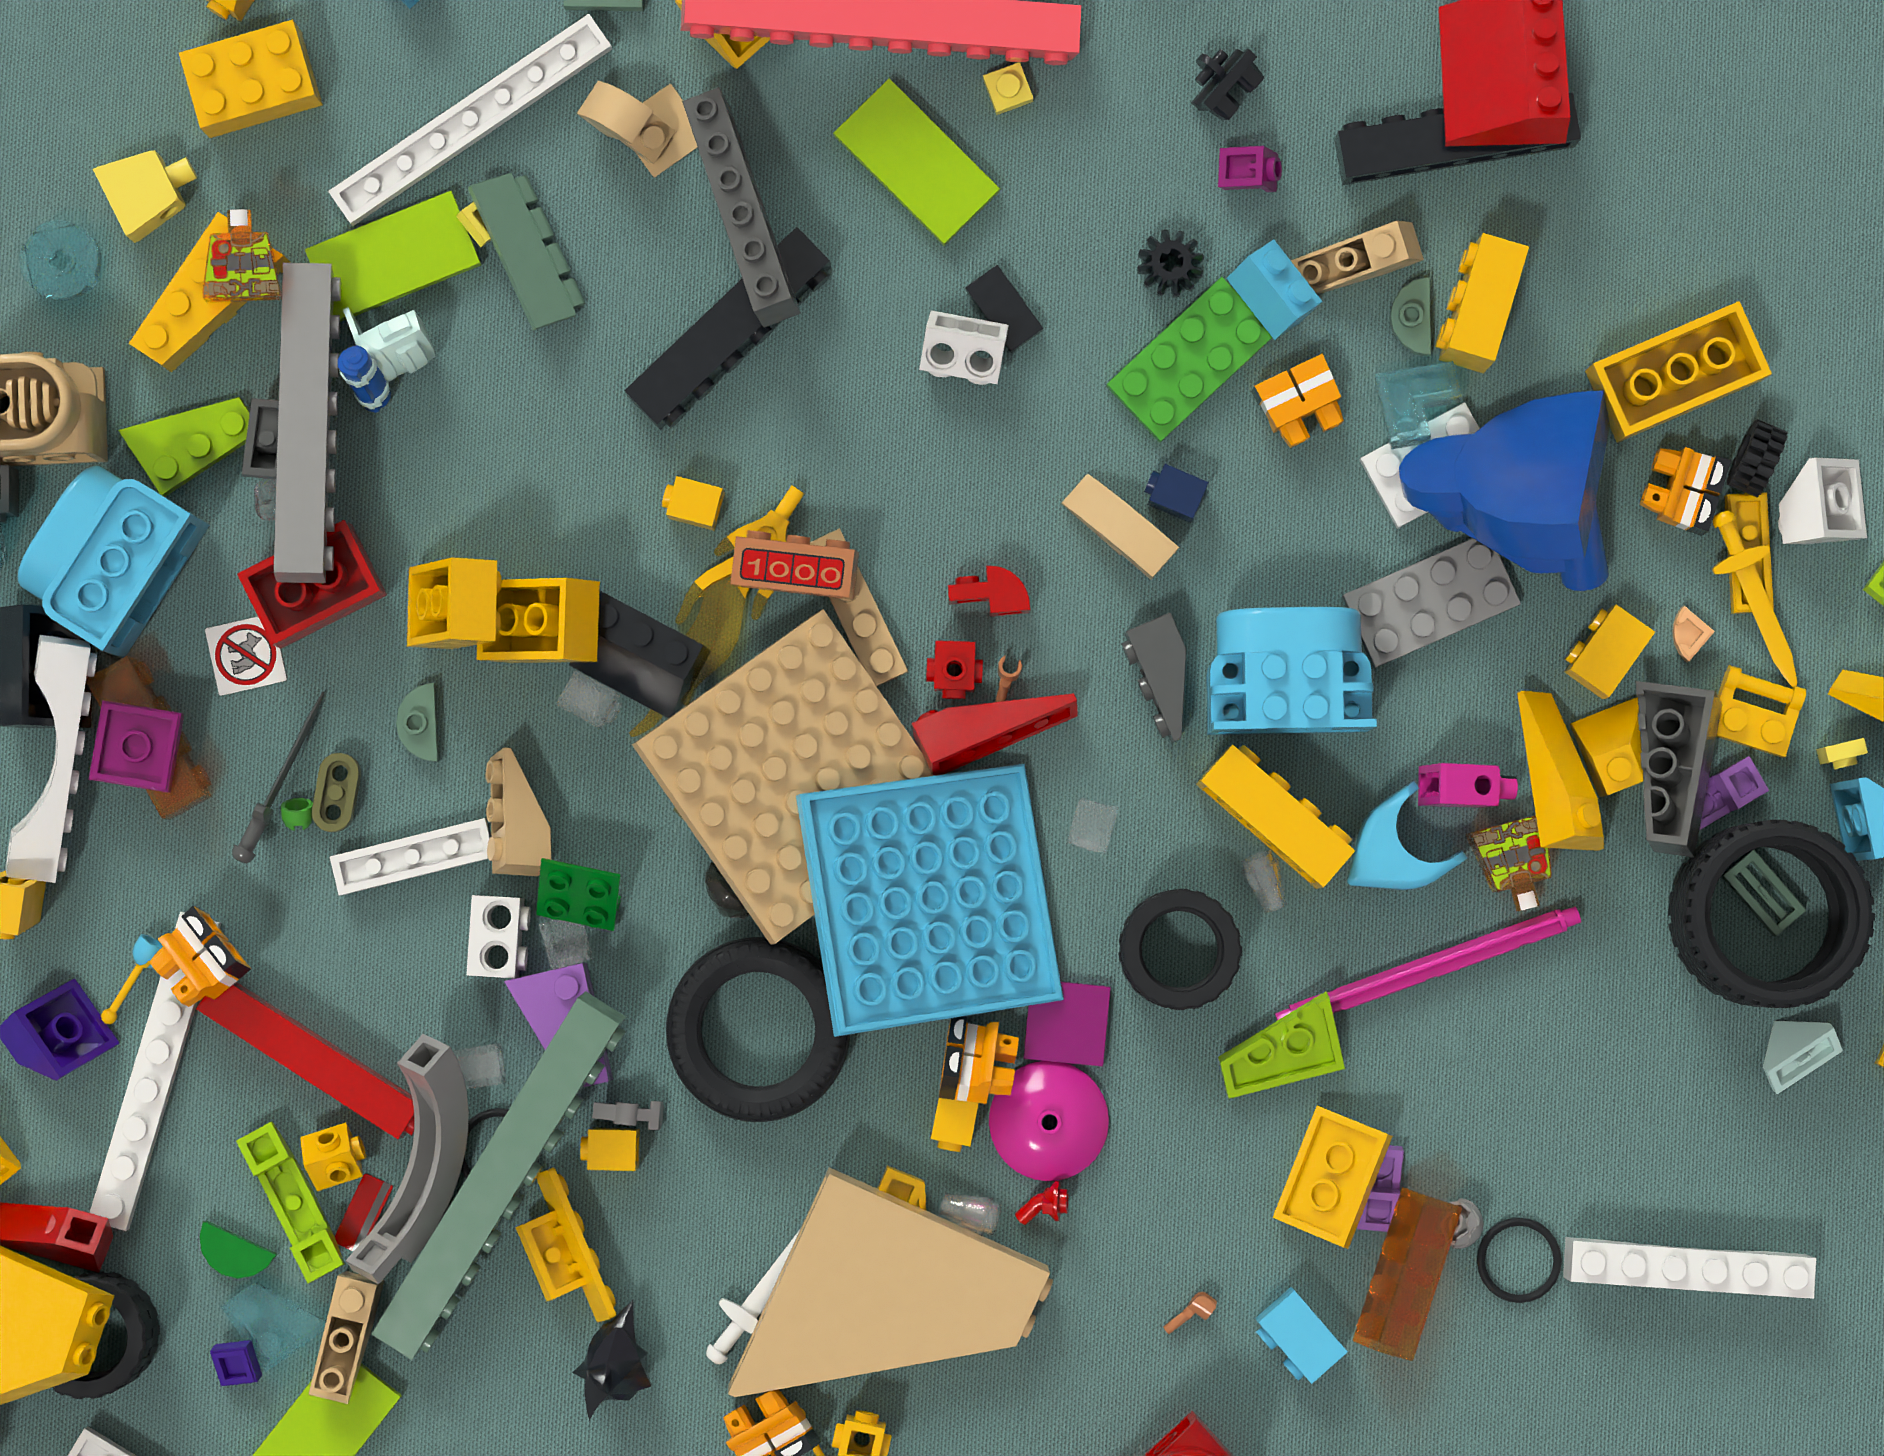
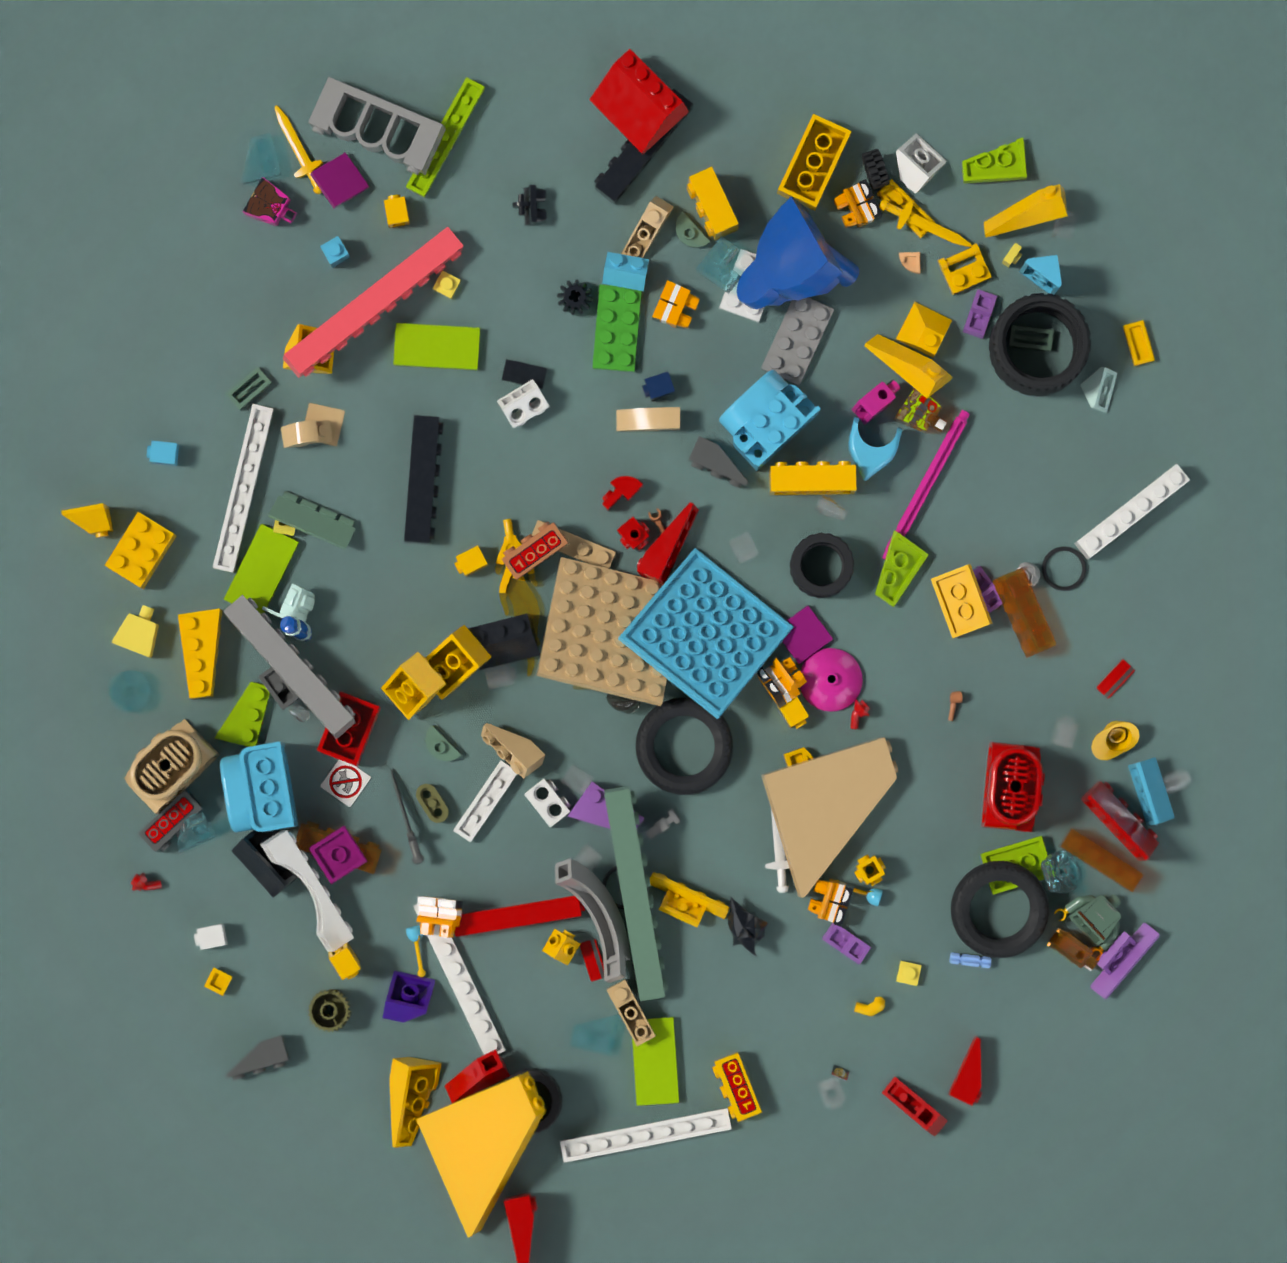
camera: 45 degrees left, 0 degrees up
(231, 1253) = (556, 1021): green tile -> none
(236, 1363) = (596, 1062): dark purple tile -> none
(240, 263) = (208, 626): torso -> none
(292, 1201) = (561, 979): lime slope -> none
(297, 813) = (423, 825): bright green hinge -> none
(578, 894) = (565, 756): green hinge -> none
(611, 1149) = (668, 845): yellow brick -> none
(741, 207) = (385, 427): dark grey brick -> none
(972, 1212) = (834, 741): clear cone -> none
(1249, 168) = (572, 231): magenta bracket -> none
(1300, 1336) = (1004, 674): medium azure brick -> none
(1608, 651) = (885, 297): yellow brick -> none
(1676, 758) = (949, 316): dark grey wedge -> none

